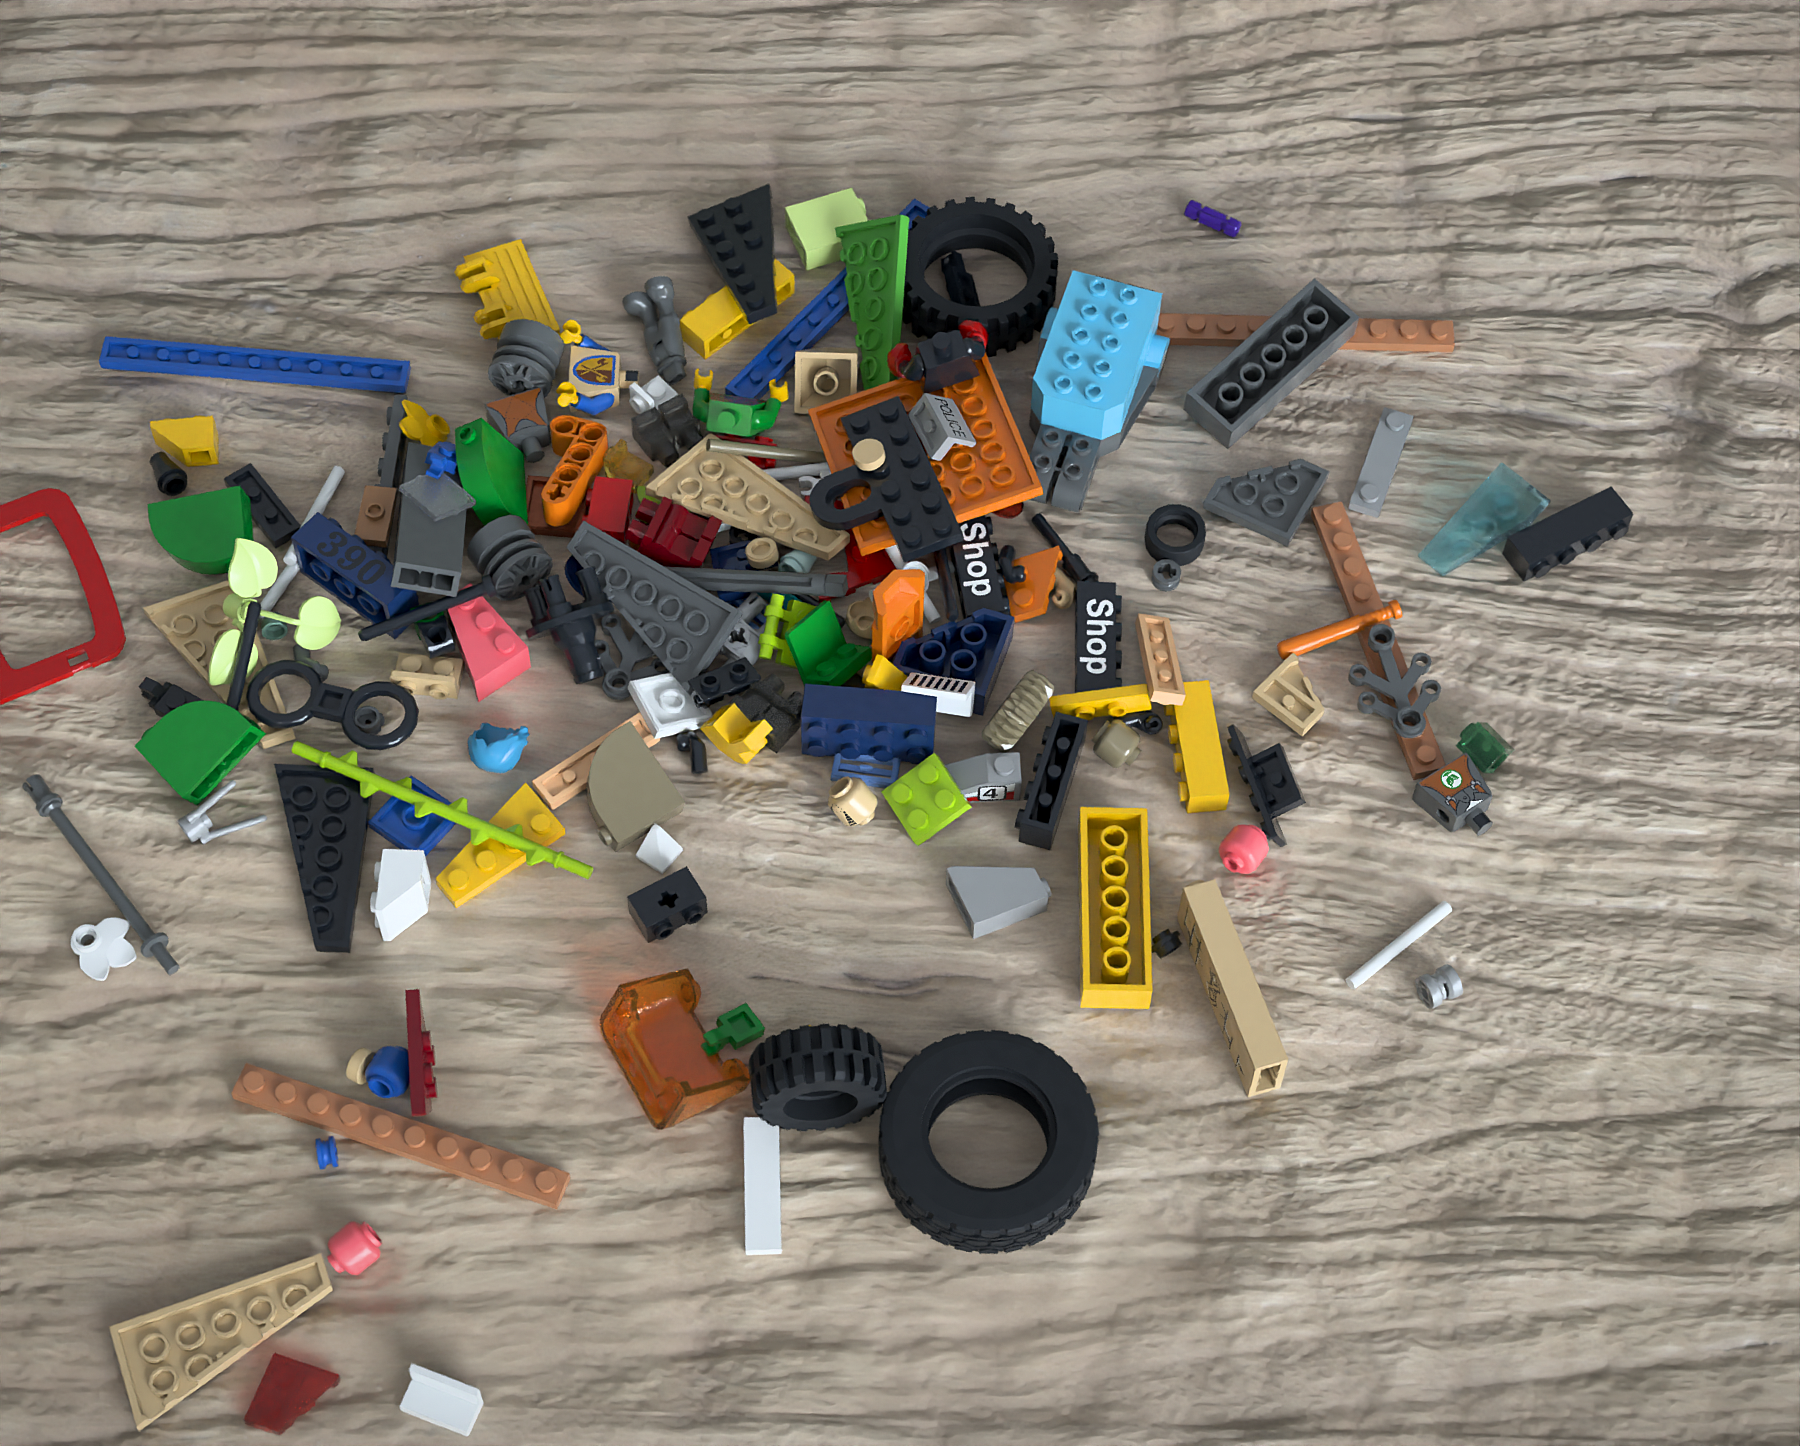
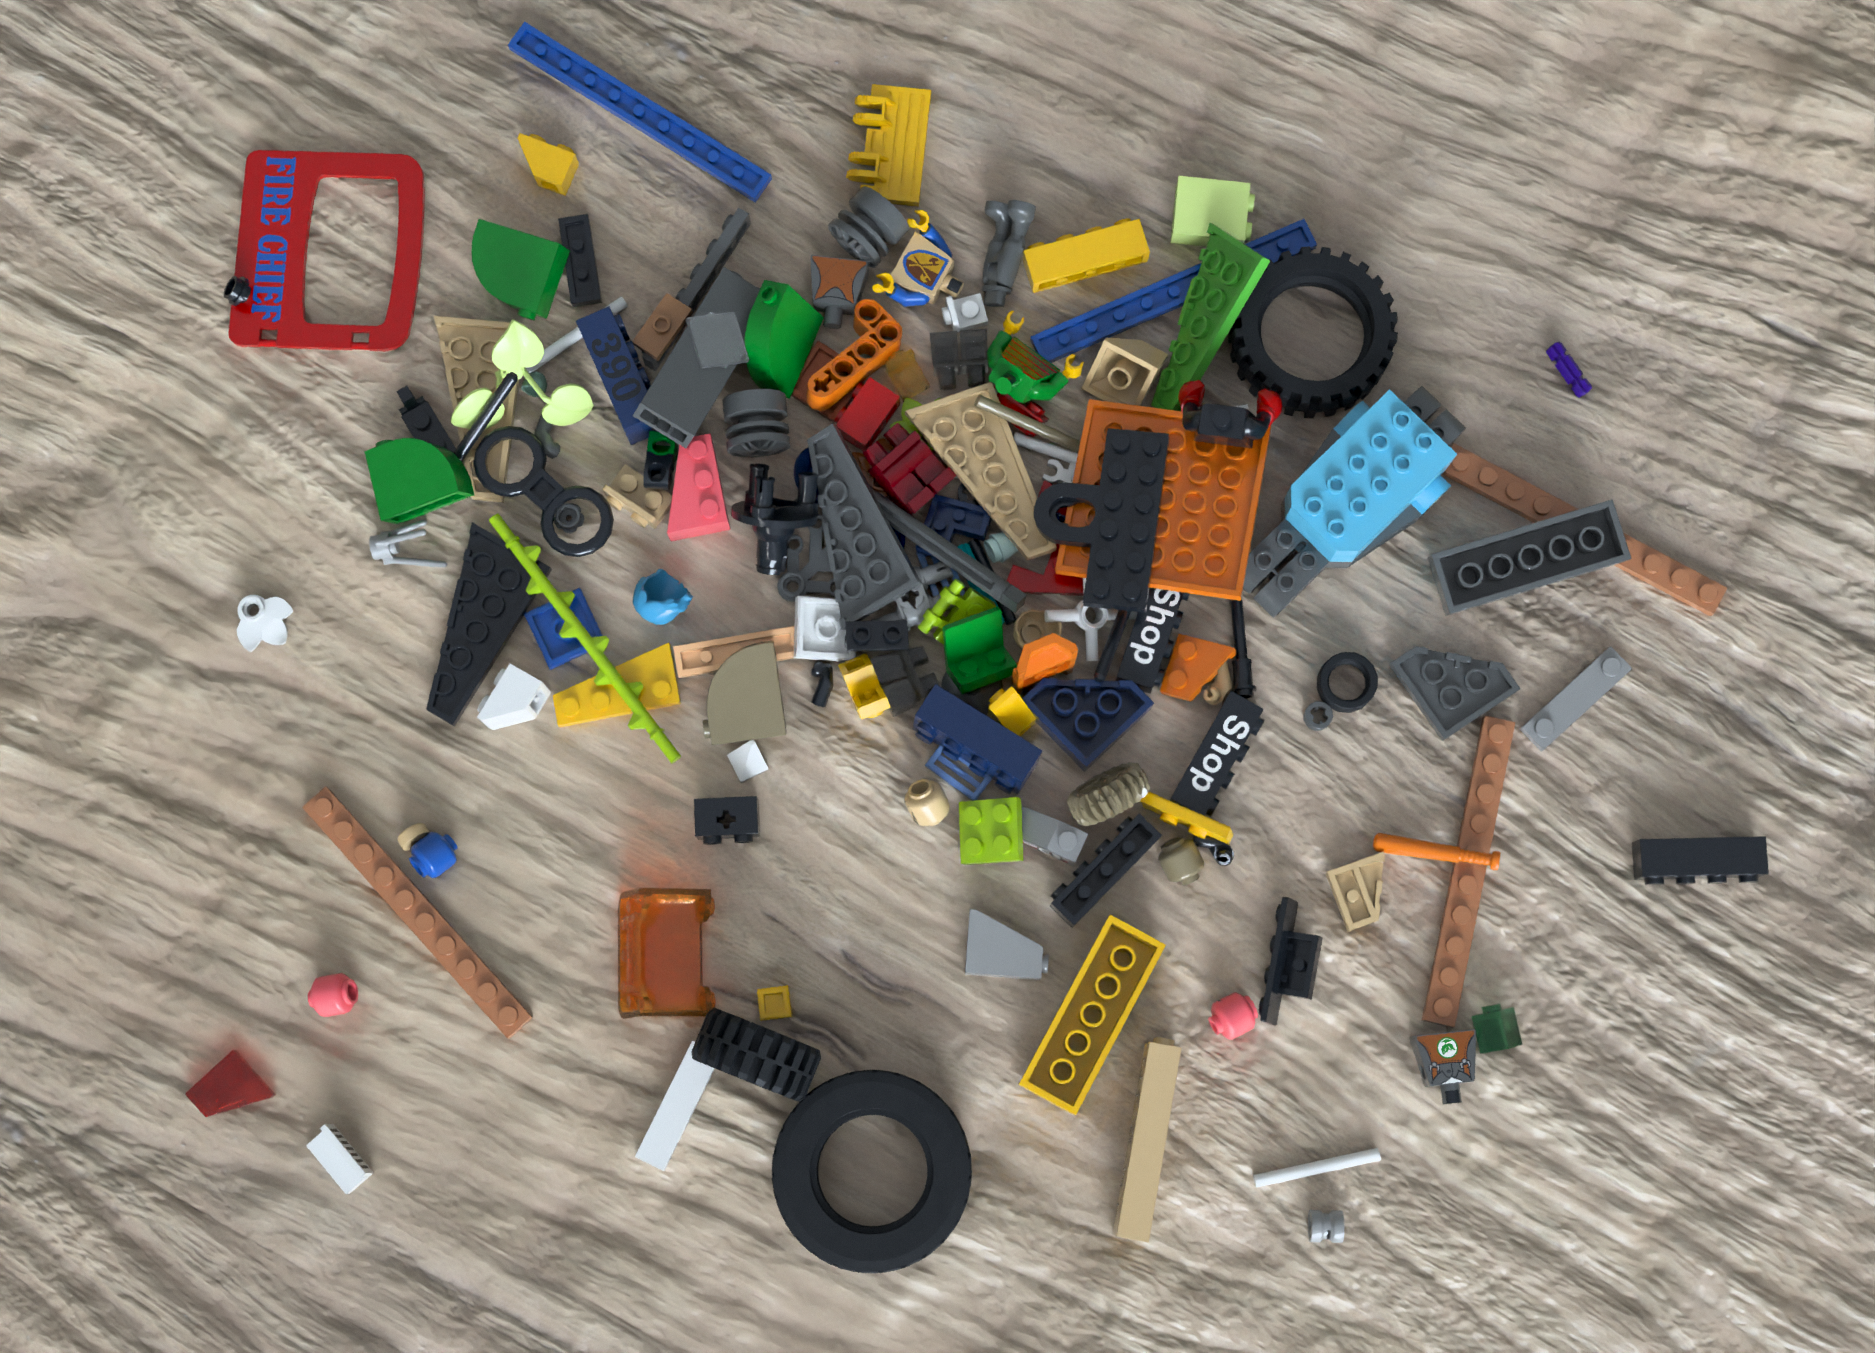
camera: 30 degrees right, 20 degrees up
(49, 805) = (277, 469): dark grey bar -> none
(168, 475) = (515, 190): black cone -> none
(192, 1341) = (177, 1007): tan wing -> none
(319, 506) = (624, 286): white bar -> none
(326, 1152) = (351, 899): blue bush -> none
(421, 426) = (749, 250): yellow plate -> none
(421, 1056) = (450, 876): dark red wing -> none
(429, 609) = (717, 450): black bar -> none
(441, 458) = (739, 303): blue plate -> none
(734, 1027) = (726, 959): green plate -> none
(741, 247) = (1118, 195): black wing -> none
(762, 552) = (973, 526): tan tile -> none
(868, 454) = (1107, 486): tan tile -> none
(939, 425) = (1188, 486): light grey panel -> none
(953, 695) = (1049, 744): white panel -> none
(959, 282) = (1295, 334): black hinge -> none
(1006, 563) = (1178, 642): black arm -> none
(1160, 659) = (1259, 804): light nougat plate -> none
(1165, 943) = (1119, 1066): black plate -> none
(1198, 750) = (1249, 898): yellow brick -> none
(1394, 686) = (1451, 934): dark grey plant -> none
(1487, 518) = (1642, 809): clear light blue wedge -> none

